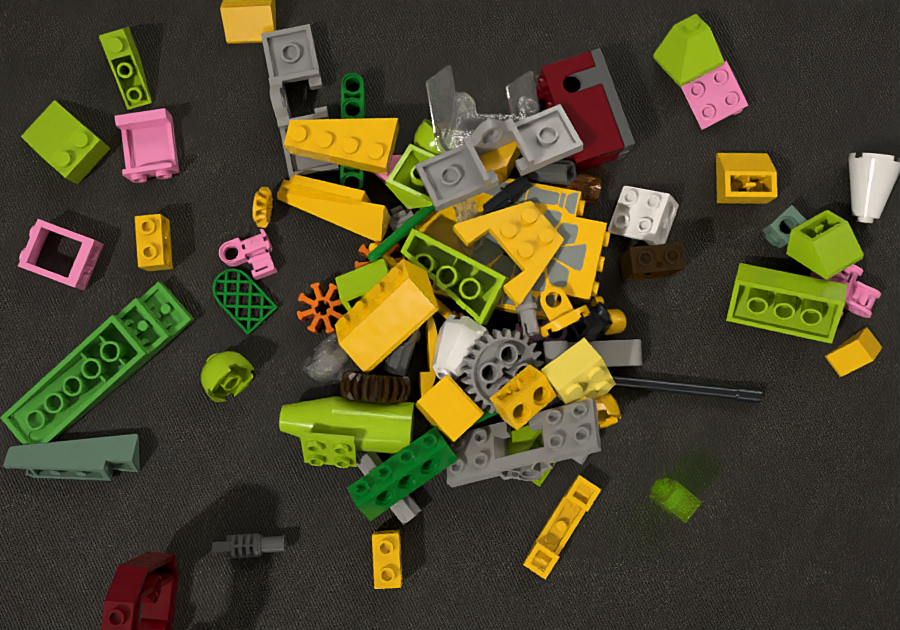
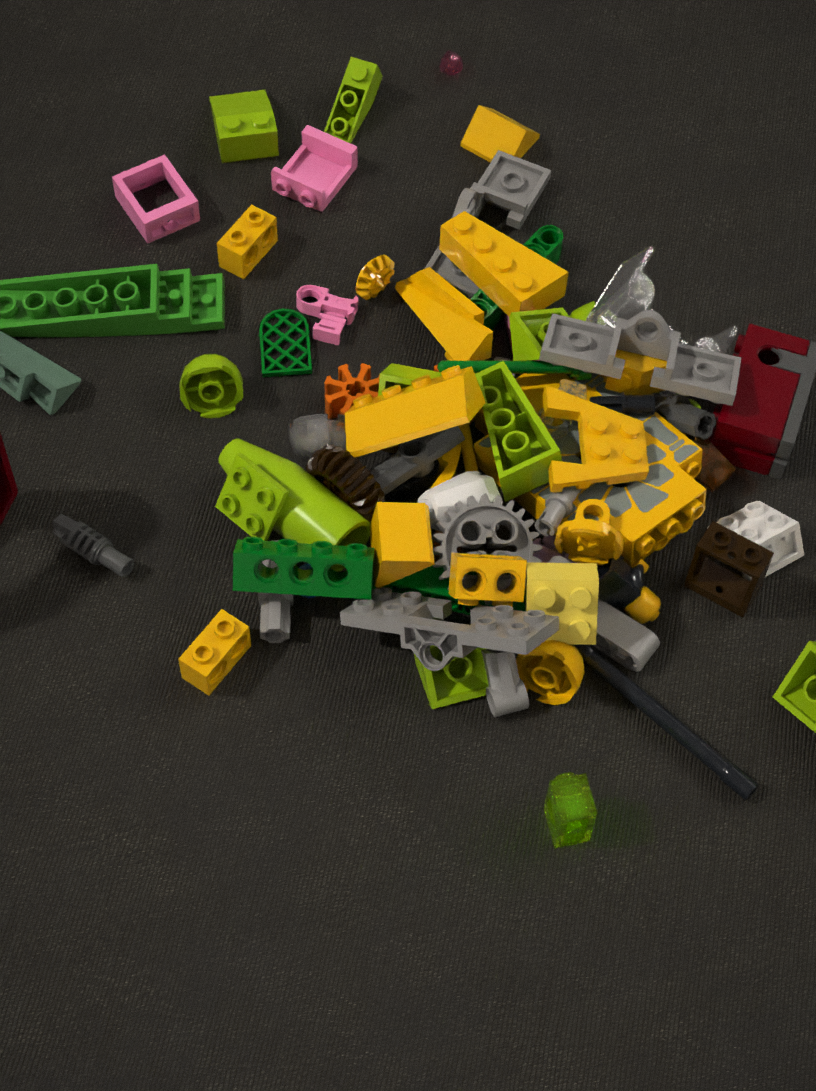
camera: 35 degrees right, 25 degrees down
(560, 526) = (425, 759): yellow slope -> none

